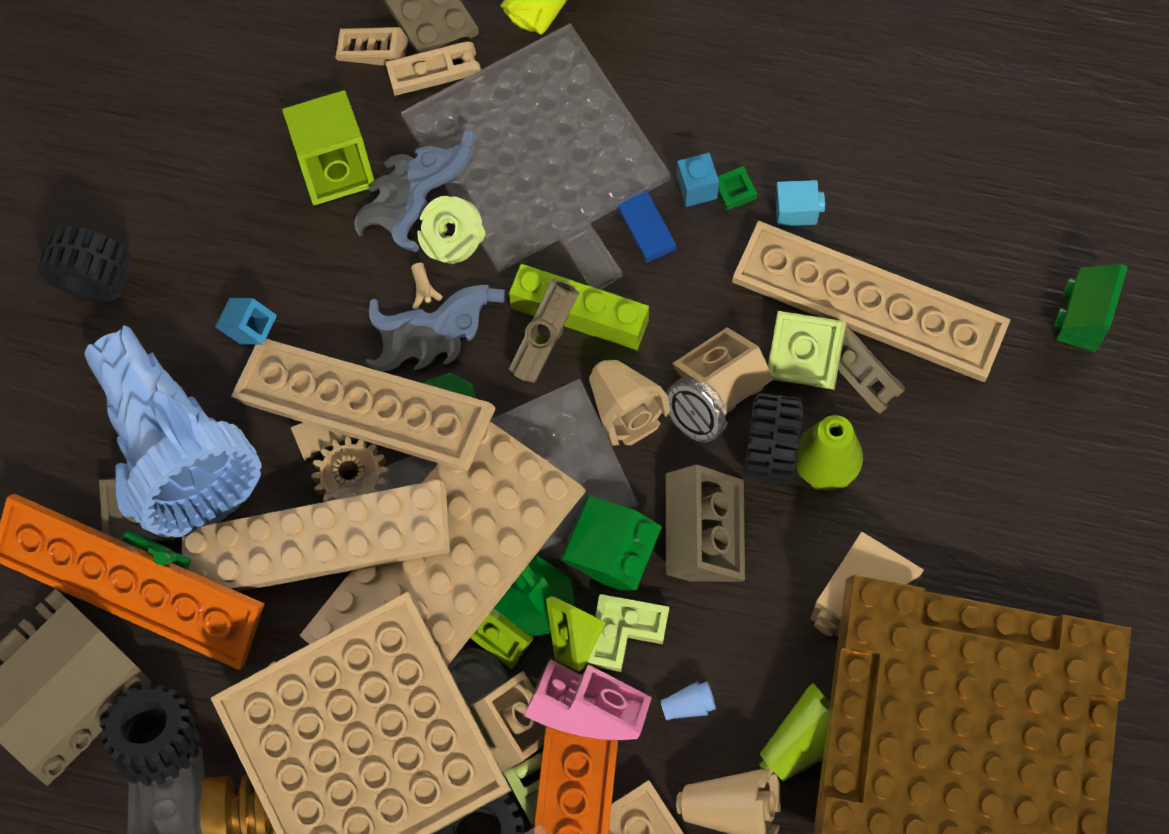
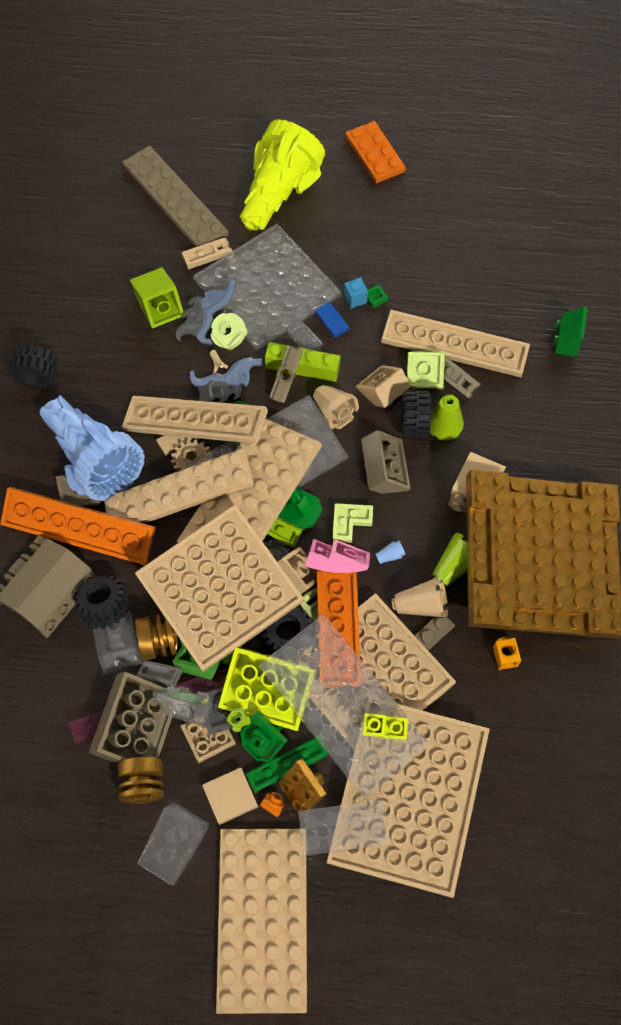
camera: 10 degrees left, 5 degrees down
(161, 554) = (96, 508): green hose -> none
(246, 321) = (125, 387): dark azure brick -> none
(392, 47) = (172, 251): tan slope -> none
(572, 633) = (323, 523): lime slope -> none
(610, 543) = (337, 476): green slope -> none
(697, 409) = (373, 404): tile -> none
(798, 203) = (410, 299): medium azure brick -> none

